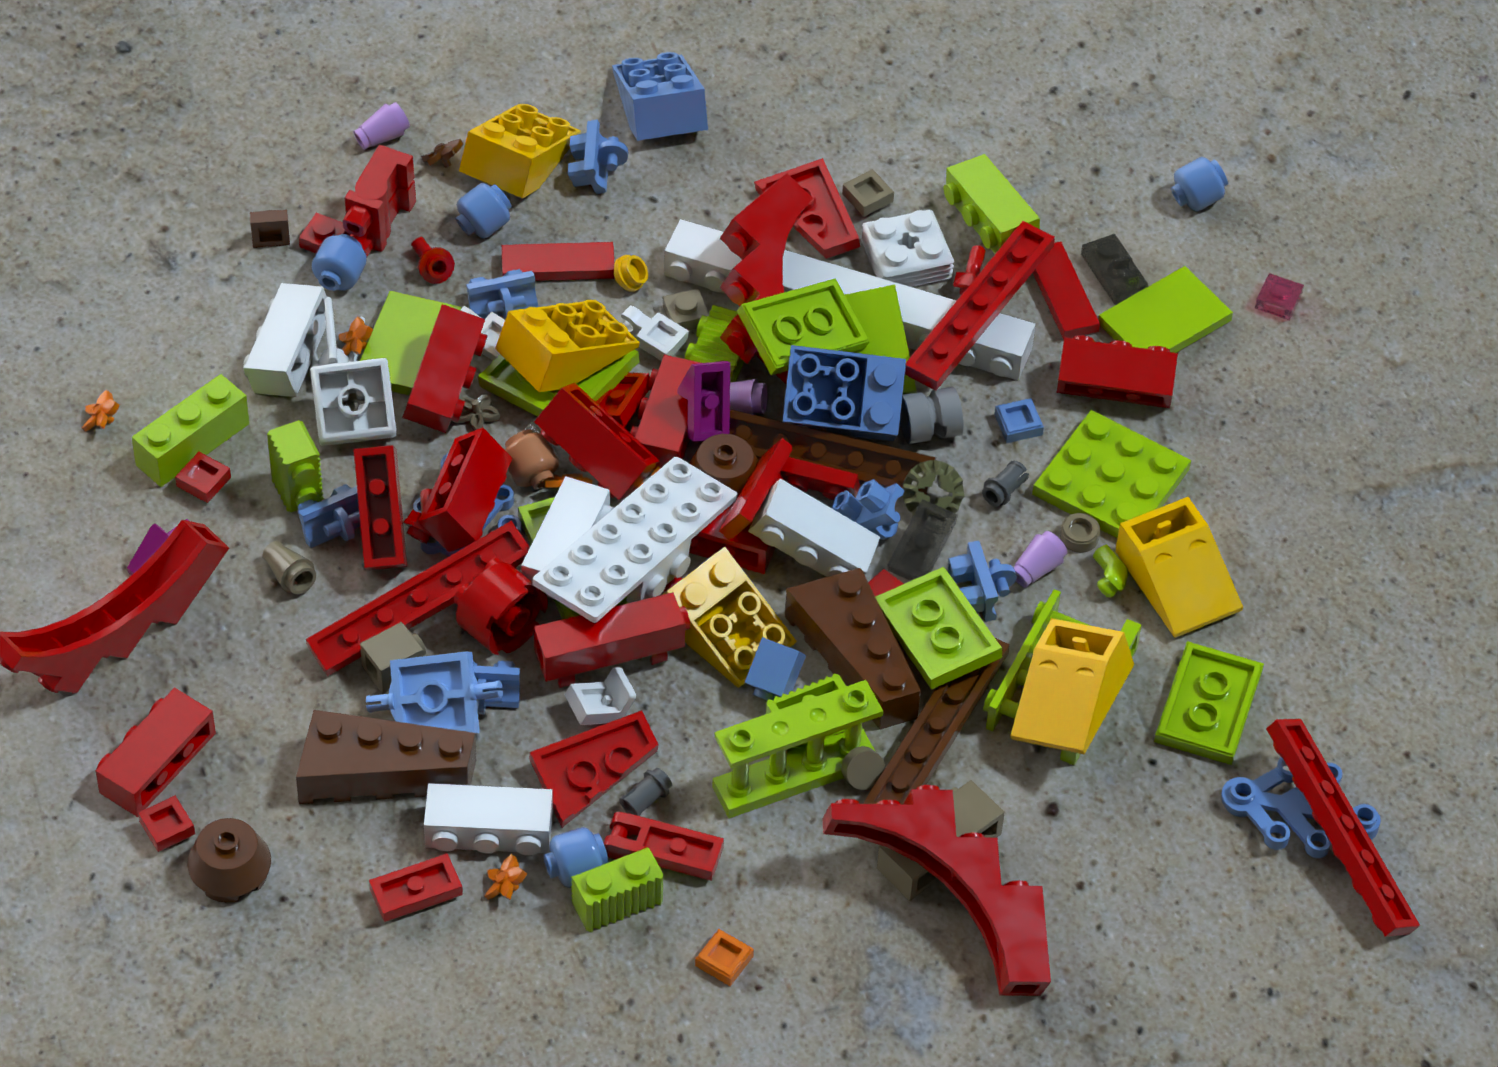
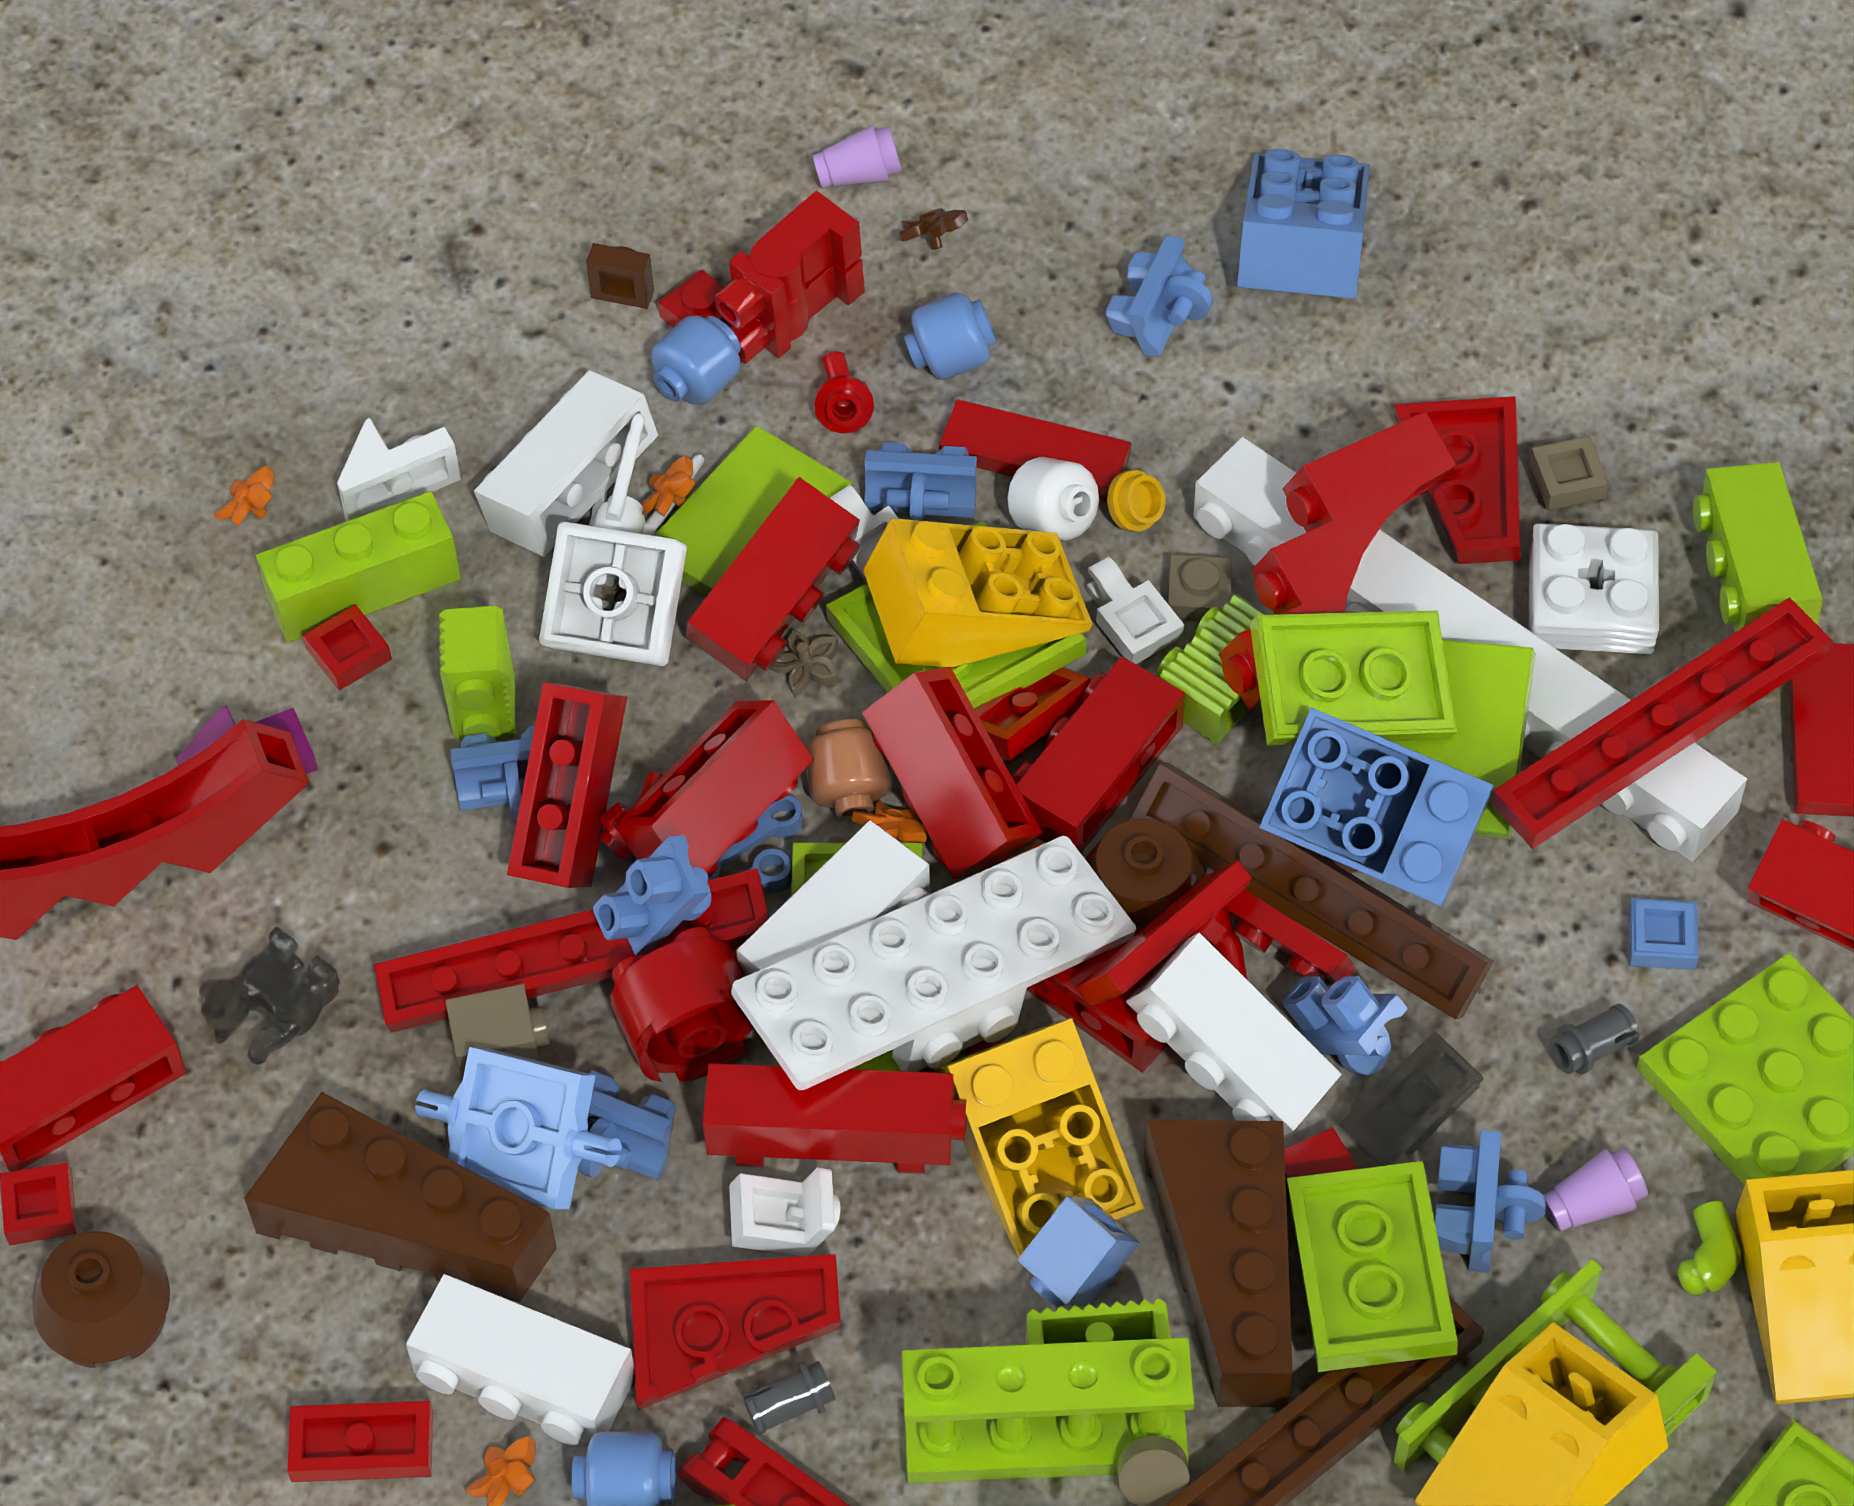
camera: 25 degrees right, 5 degrees up
(184, 376) = (385, 477): none -> white slope
(250, 672) = (275, 990): none -> clear smoke animal
(291, 569) = (408, 838): dark tan cone -> none
(466, 547) = (655, 897): none -> medium blue hips
(516, 149) = (1045, 250): yellow slope -> none
(584, 280) = (1053, 497): none -> white head
(708, 398) = (1150, 758): magenta slope -> none
(748, 396) = (1223, 760): lavender cone -> none
(923, 476) = (1453, 991): olive gear -> none
(931, 415) = (1514, 885): light grey wheel -> none
(973, 268) = (1686, 649): red plate -> none
(1080, 532) = (1688, 1163): dark tan tile -> none

